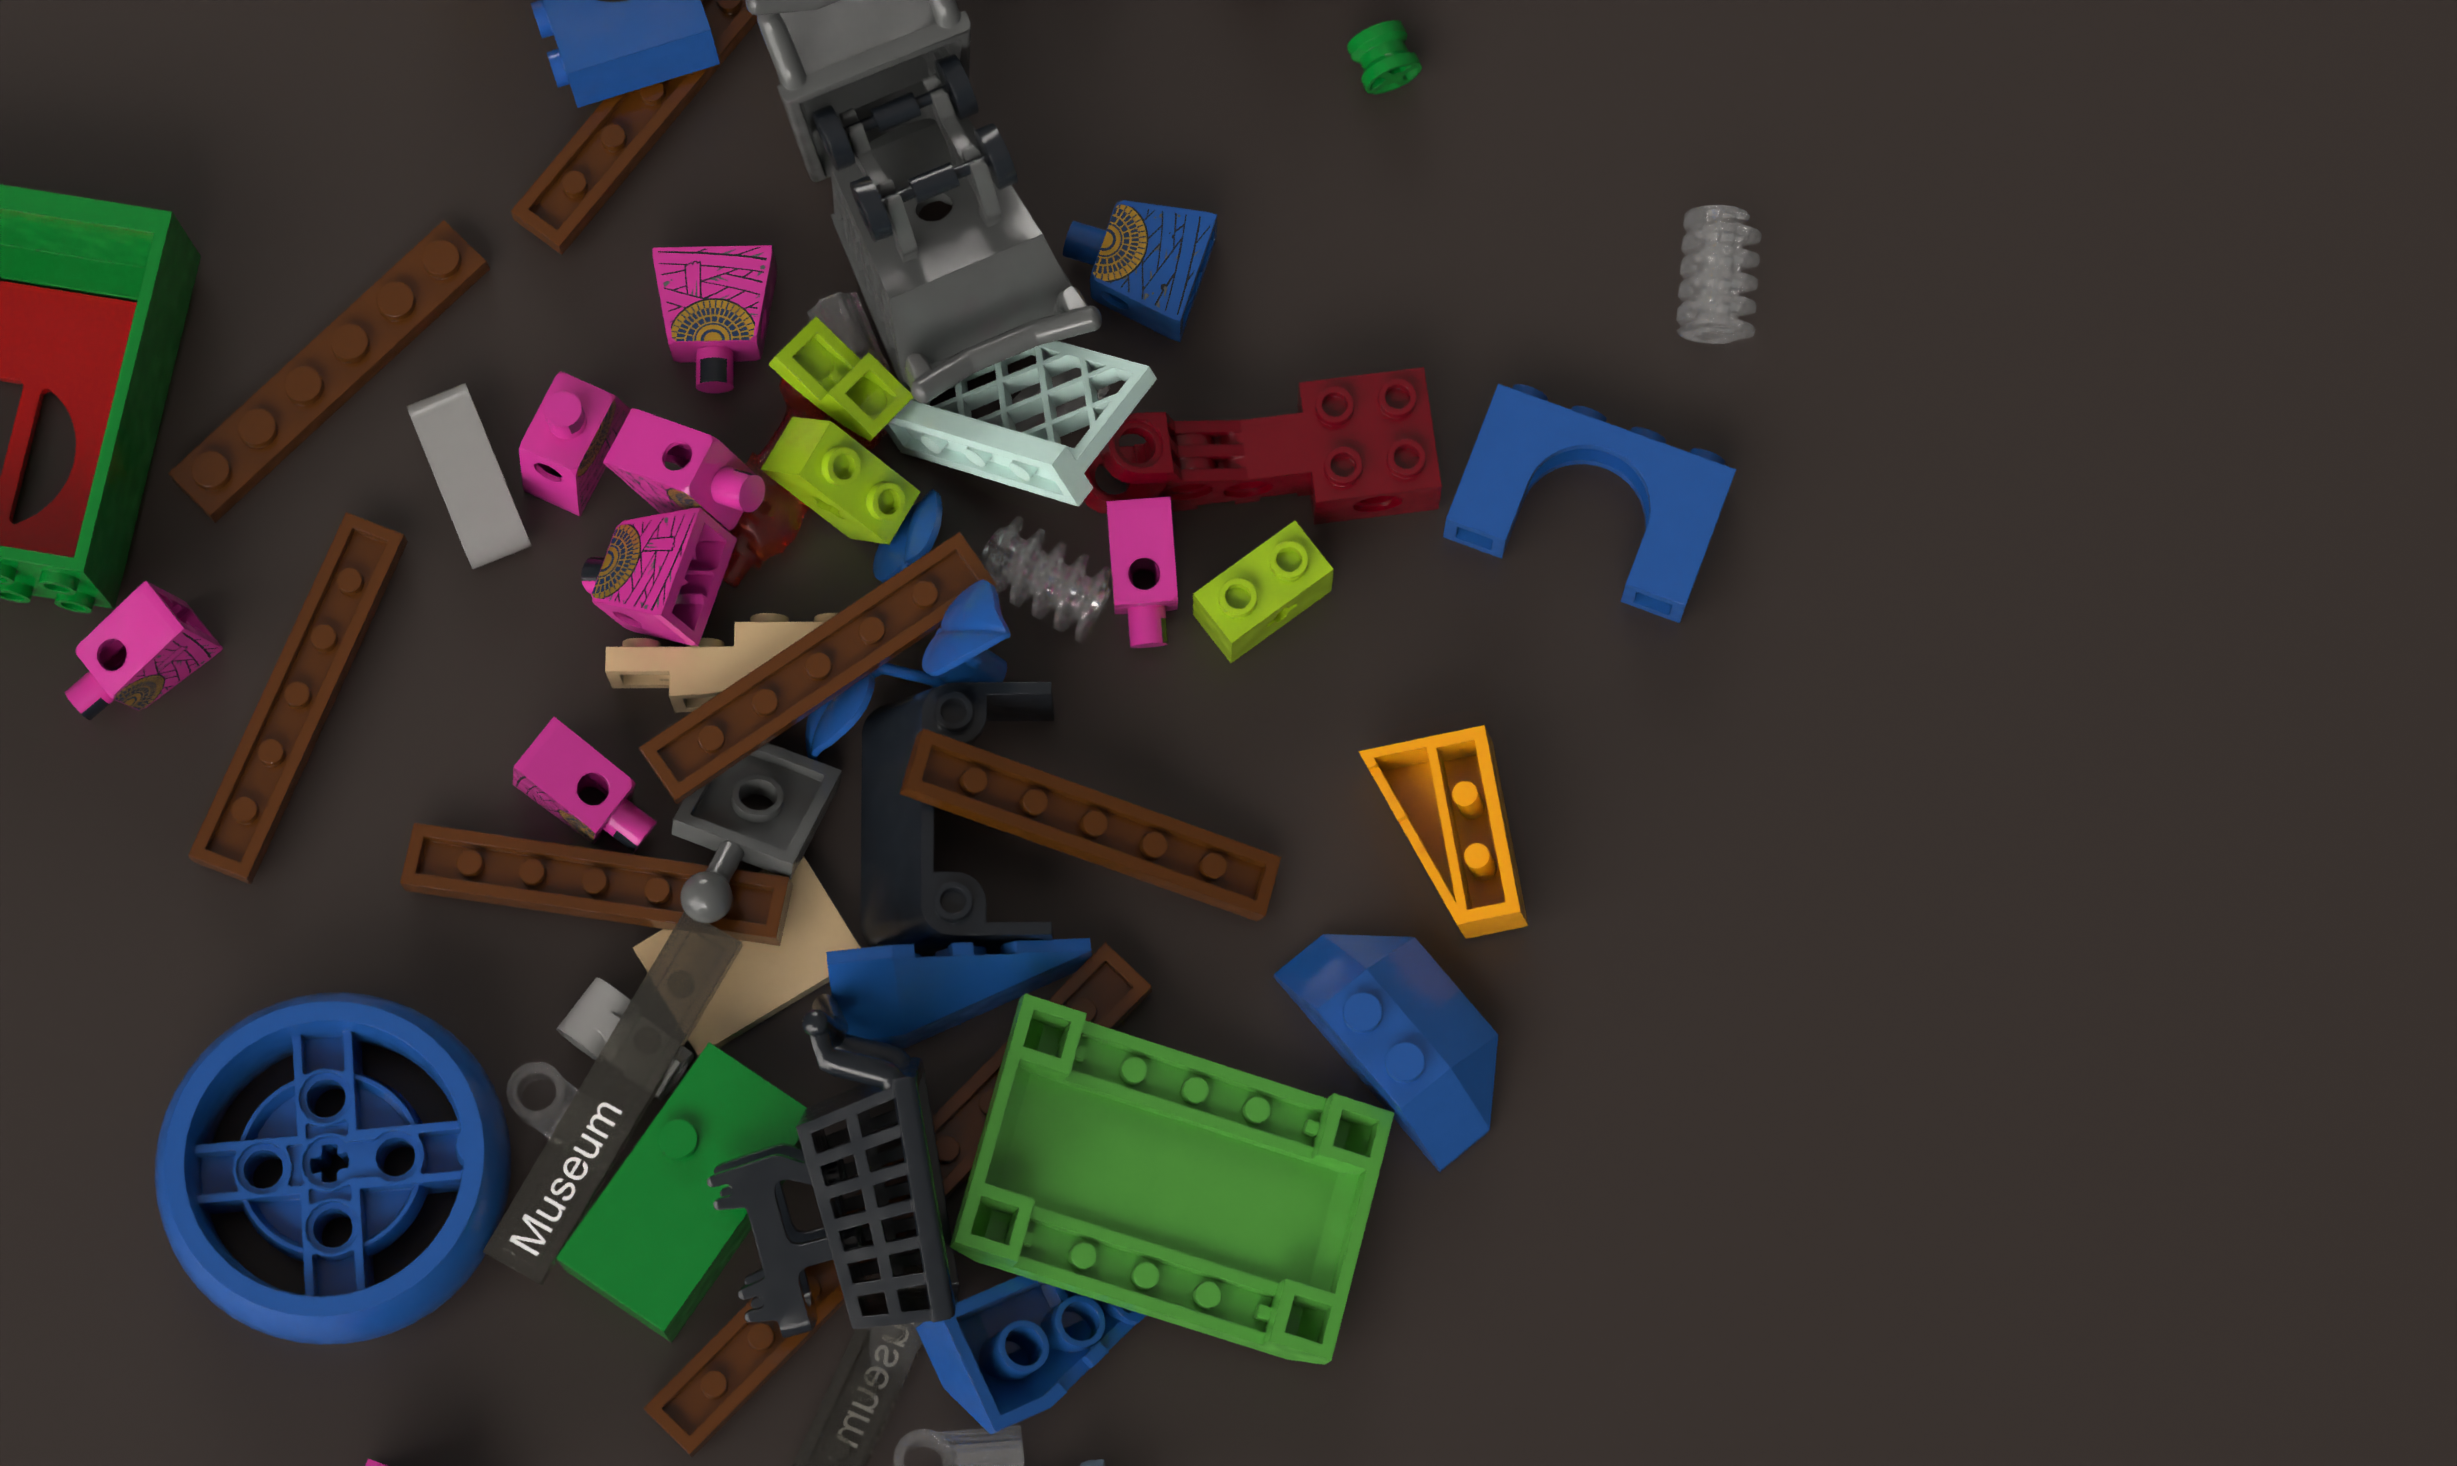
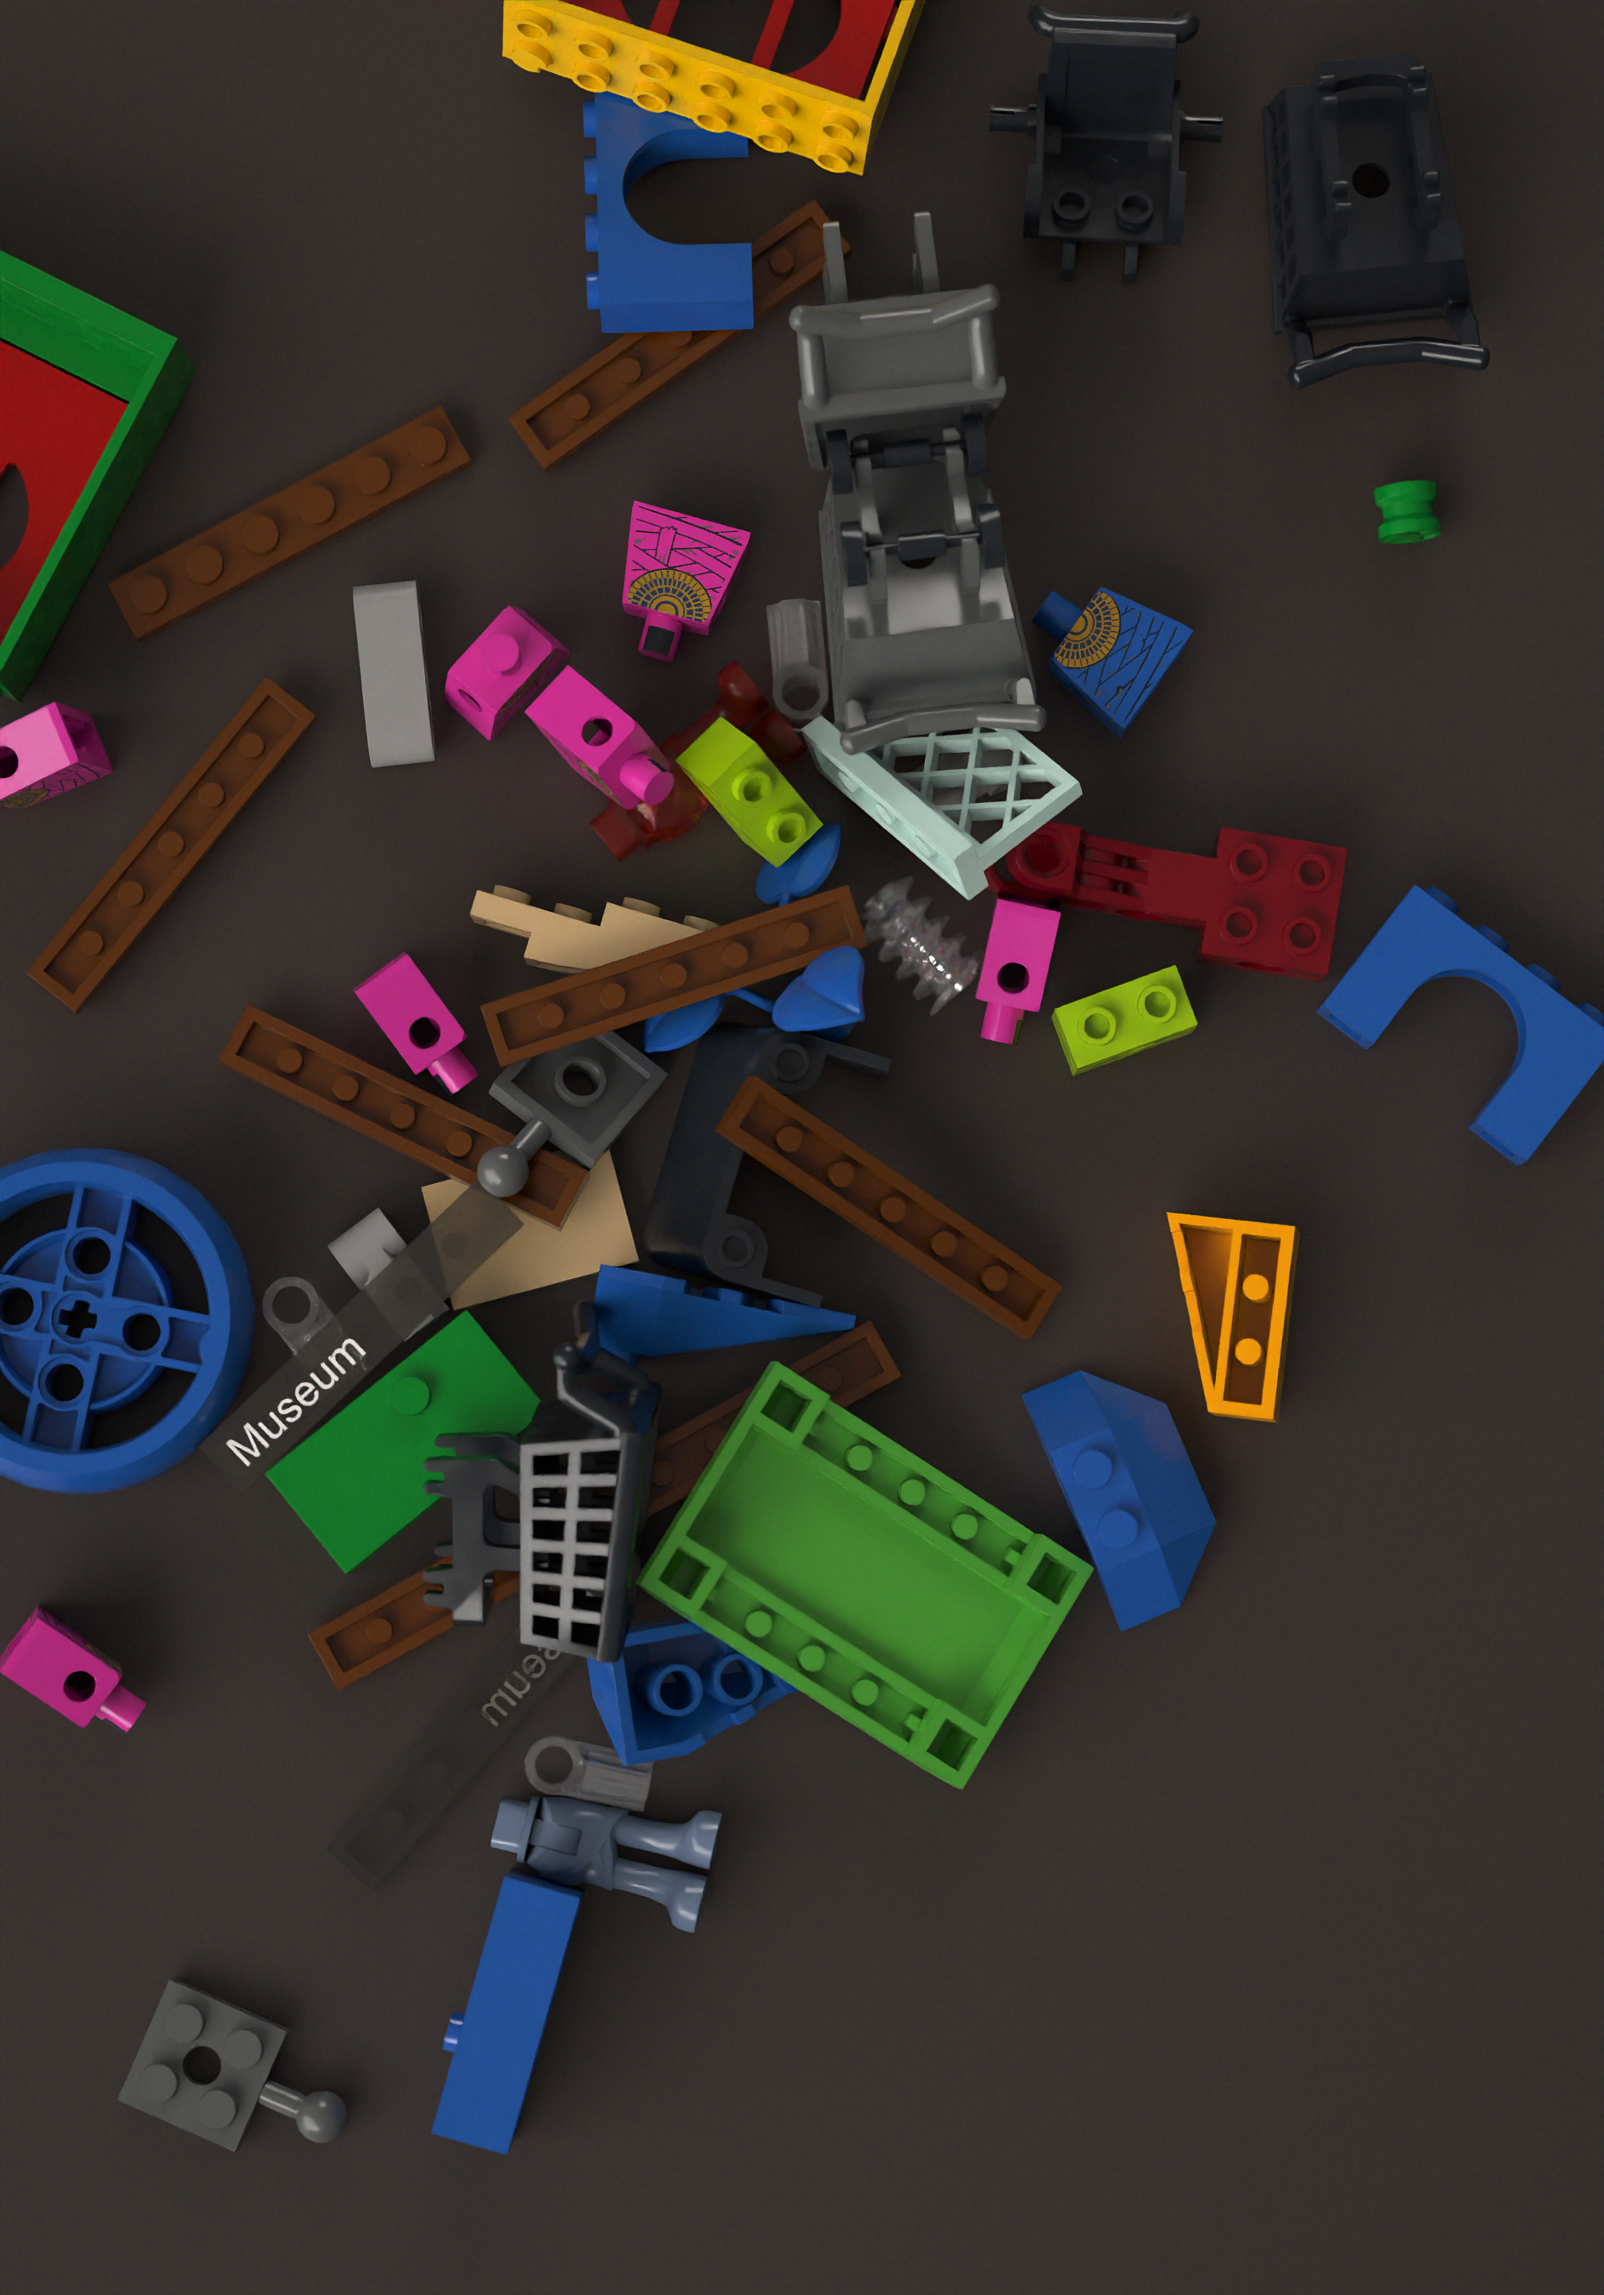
camera: 15 degrees right, 10 degrees up
(662, 574) = (550, 833): dark pink torso -> none
(838, 382) = (777, 696): lime slope -> none

